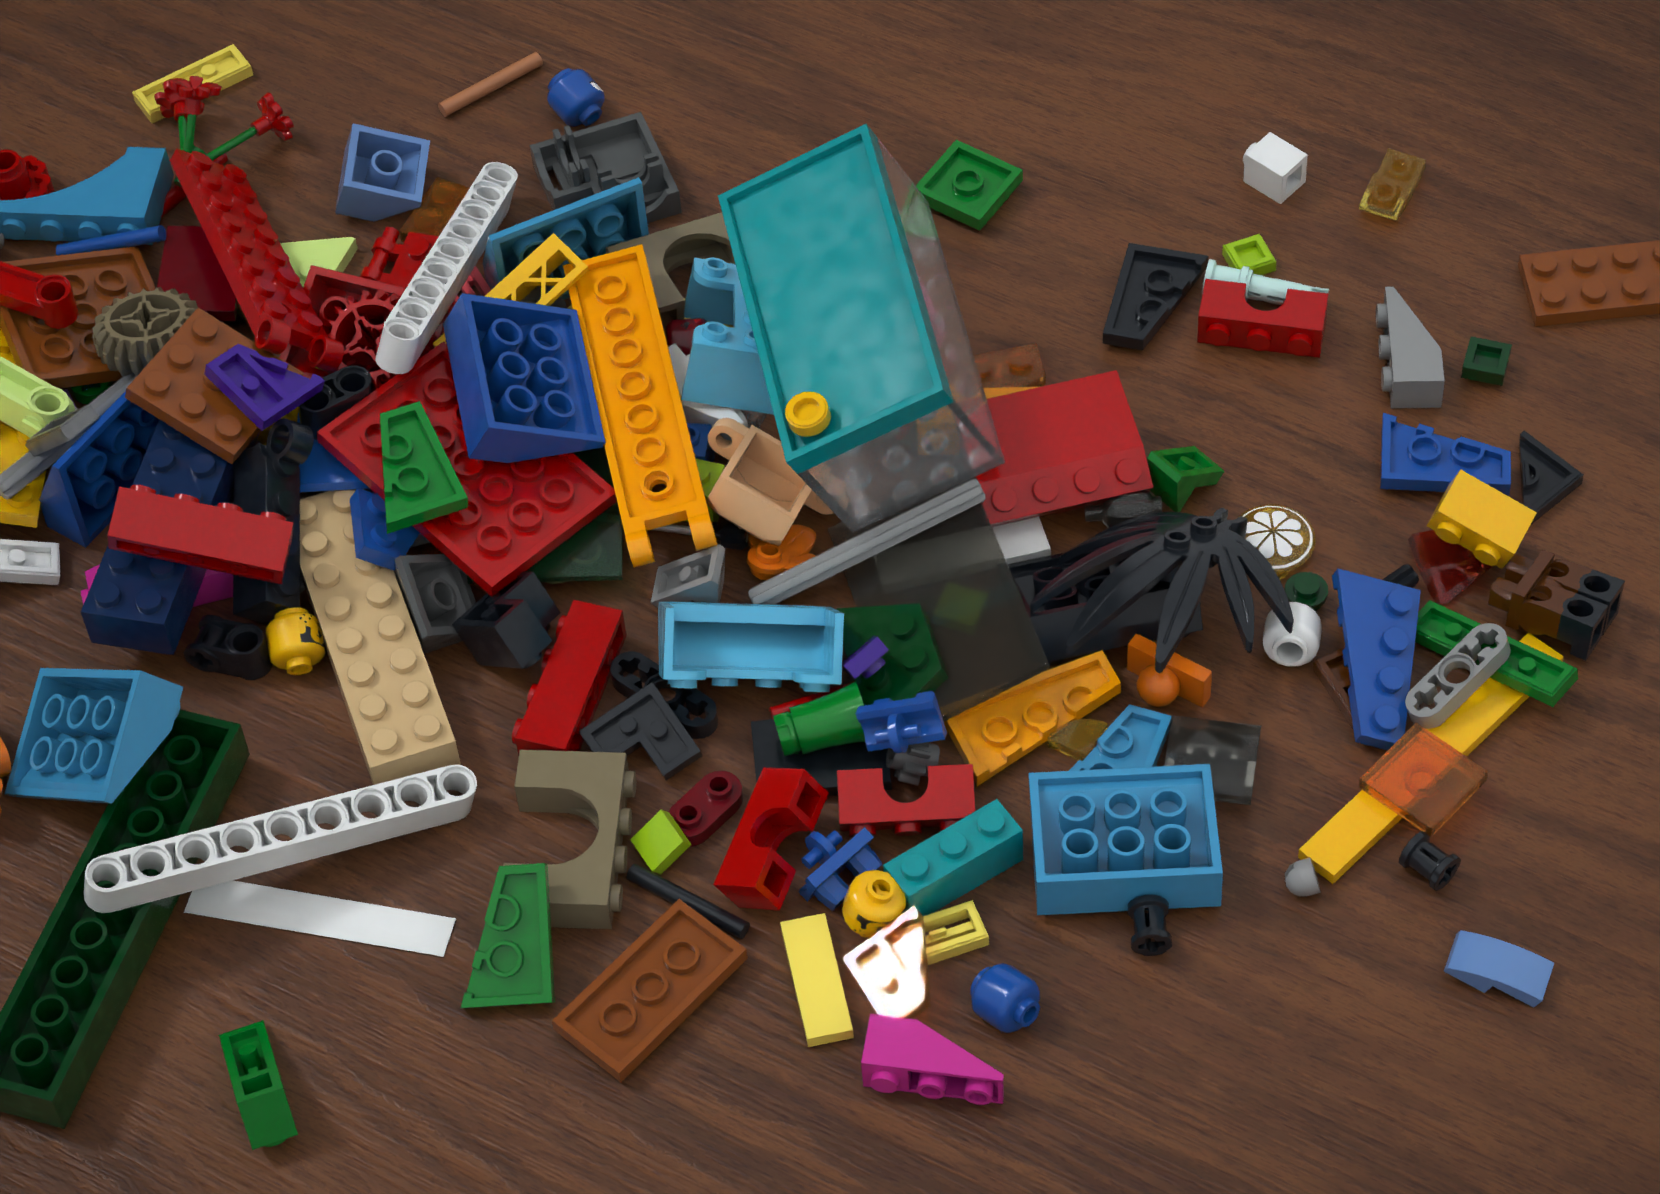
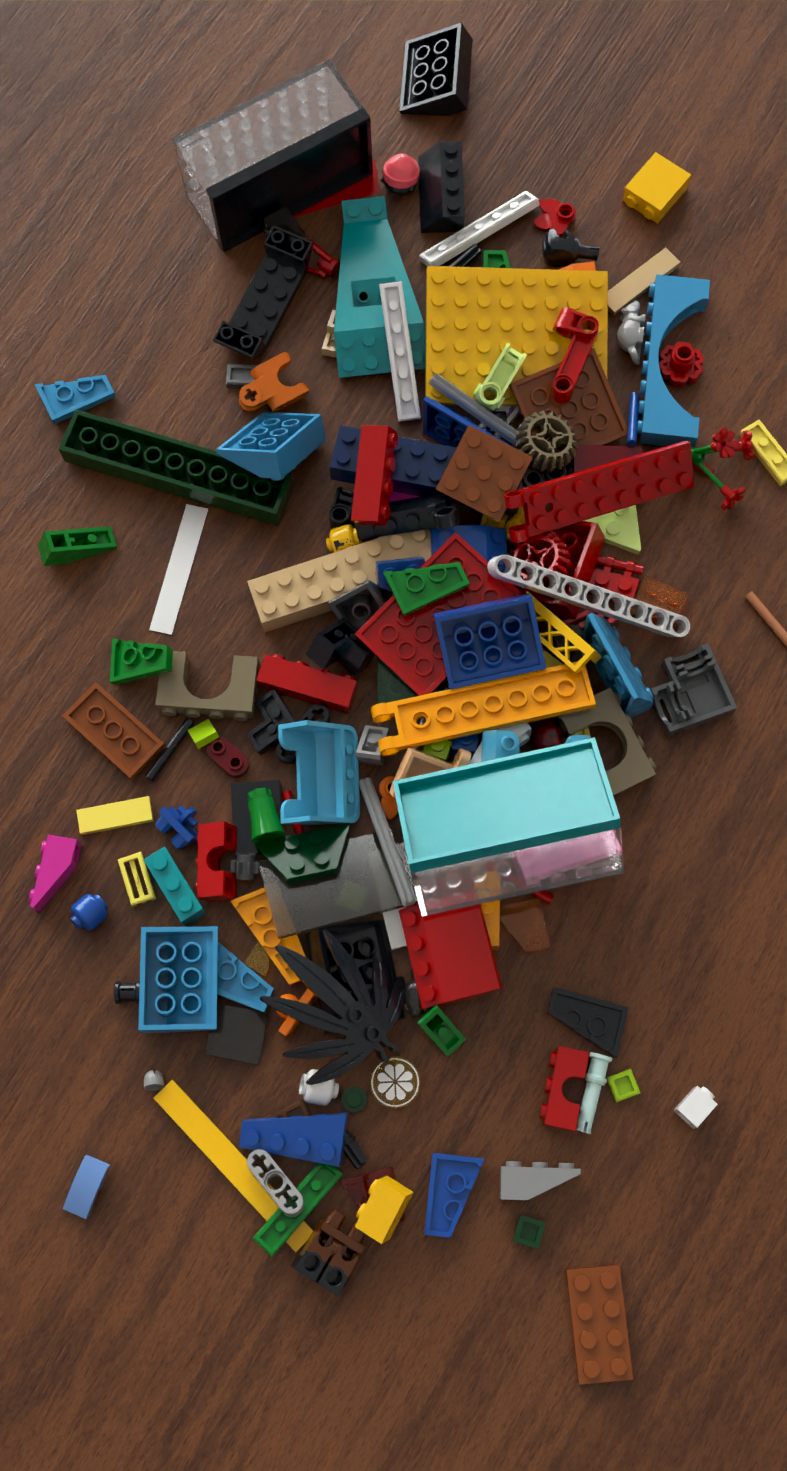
camera: 90 degrees right, 20 degrees up
(61, 430) = (459, 400): flat silver tile -> none
(260, 384) = (475, 495): dark purple wing -> none
(269, 853) = (195, 532): white beam -> none
(340, 392) = (482, 541): black beam -> none
(381, 173) = (685, 560): medium blue slope -> none
(575, 97) = (753, 670): blue head -> none
(779, 805) = (175, 779): red arch -> none
(808, 414) = (419, 791): yellow tile -> none
(866, 659) = (295, 835): dark purple plate -> none
(872, 902) = (140, 846): yellow head -> none
(894, 967) = (109, 854): wing -> none
(901, 722) = (242, 853): blue hips -> none
(969, 184) = (682, 909): green plate -> none
(1393, 185) = (683, 1186): clear yellow slope -> none
(1423, 779) = (209, 1155): clear orange tile -> none
(1429, 861) = (157, 1154): black bush -> none
(1544, 476) = (437, 1258): black tile -> none

